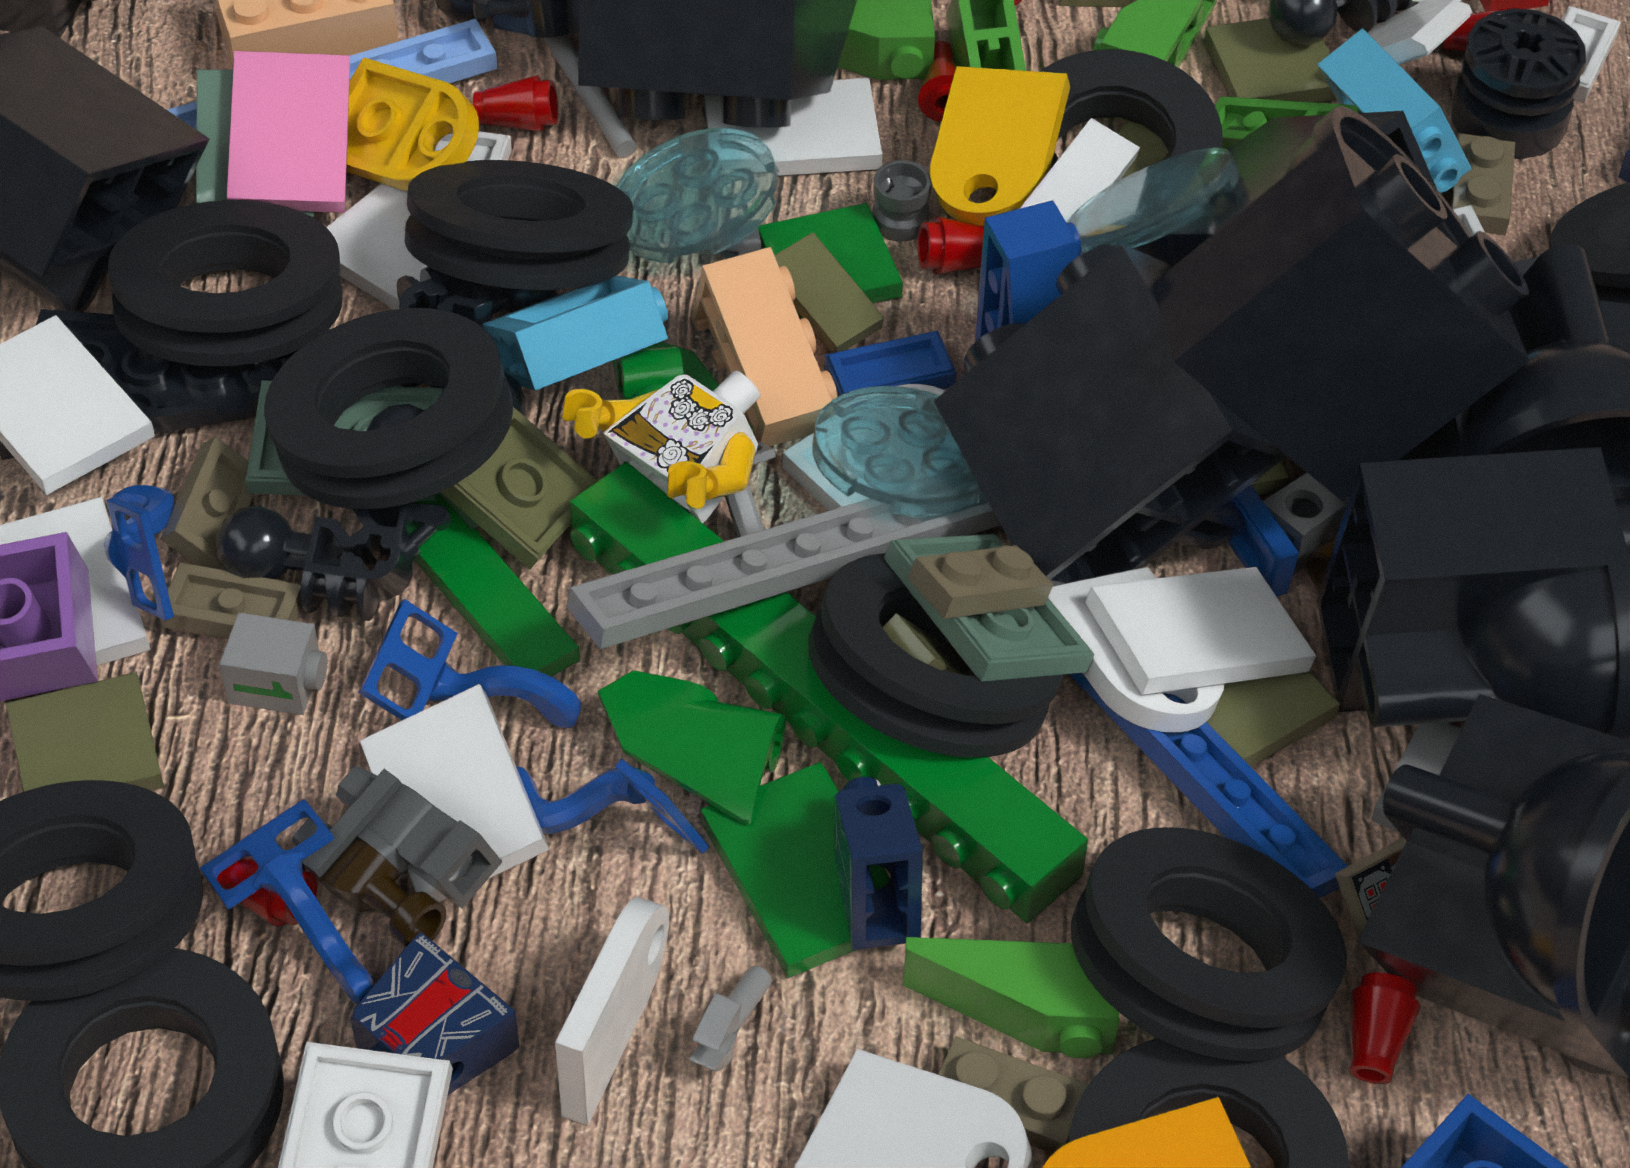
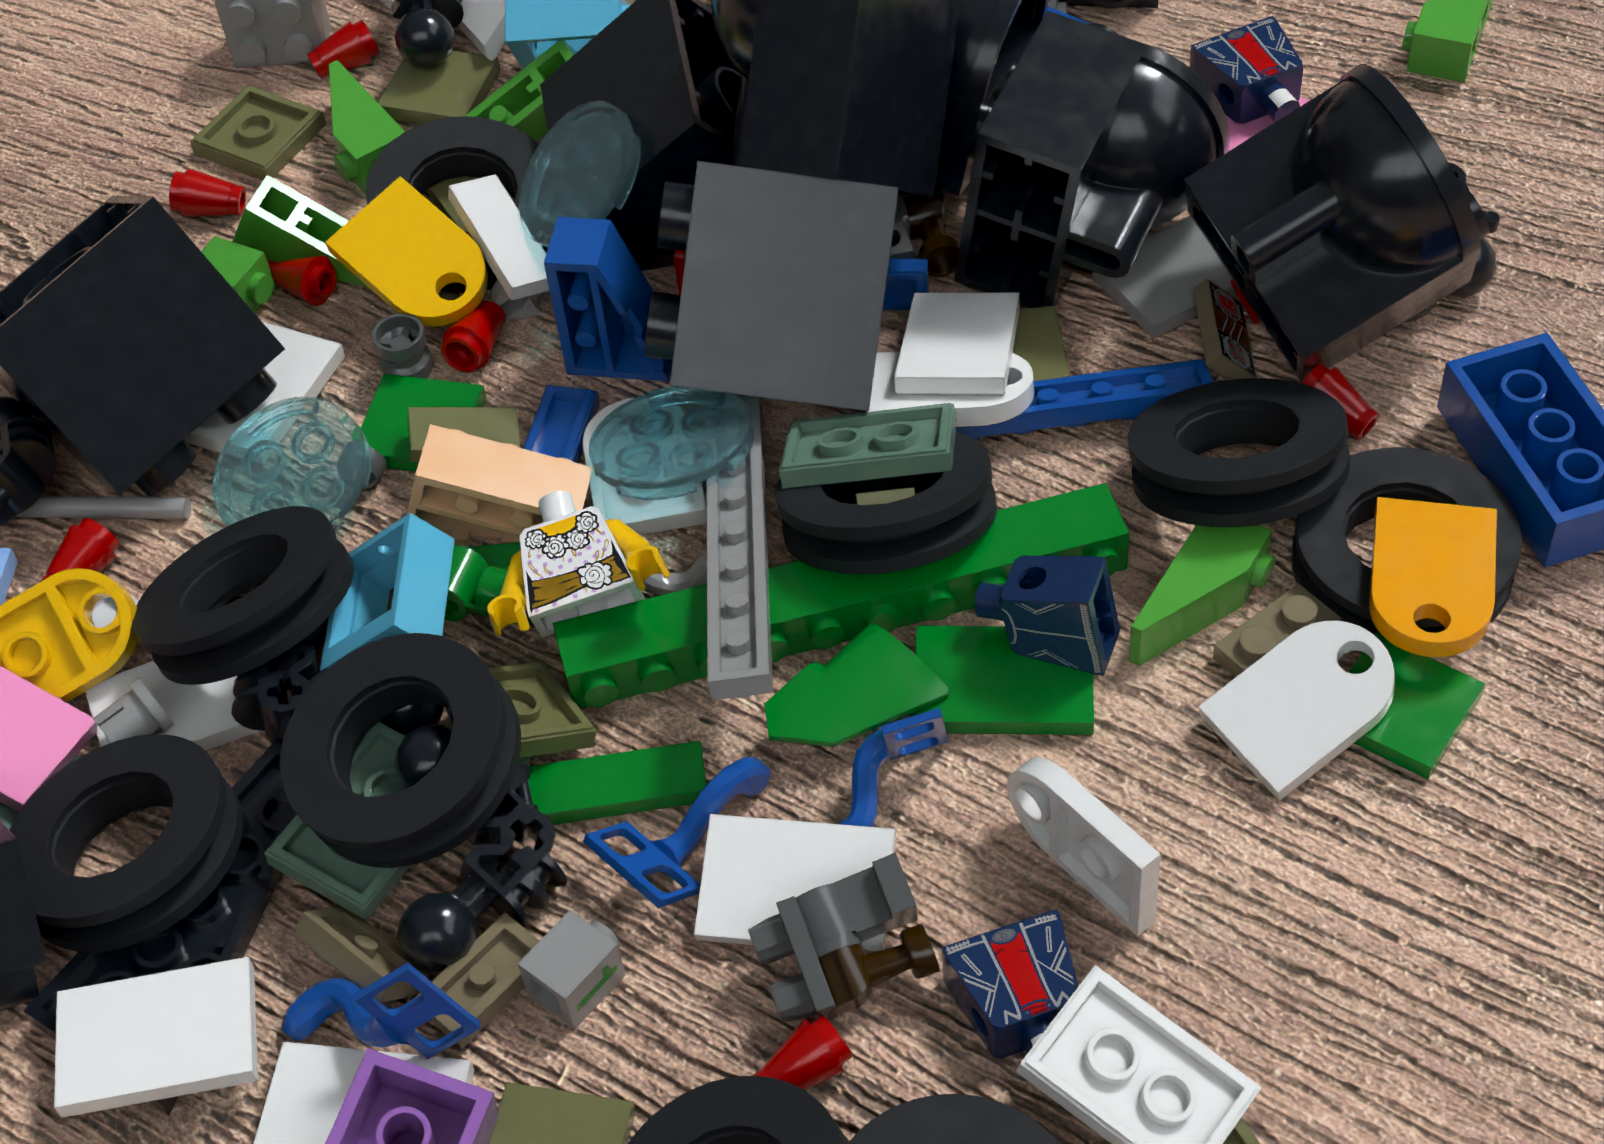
camera: 55 degrees left, 0 degrees up
(283, 874) = (825, 1027): blue piece -> none
(359, 223) = (133, 715): none -> light grey bush
(725, 1017) = (1132, 777): light grey bar -> none
(980, 581) = (859, 430): dark tan plate -> none

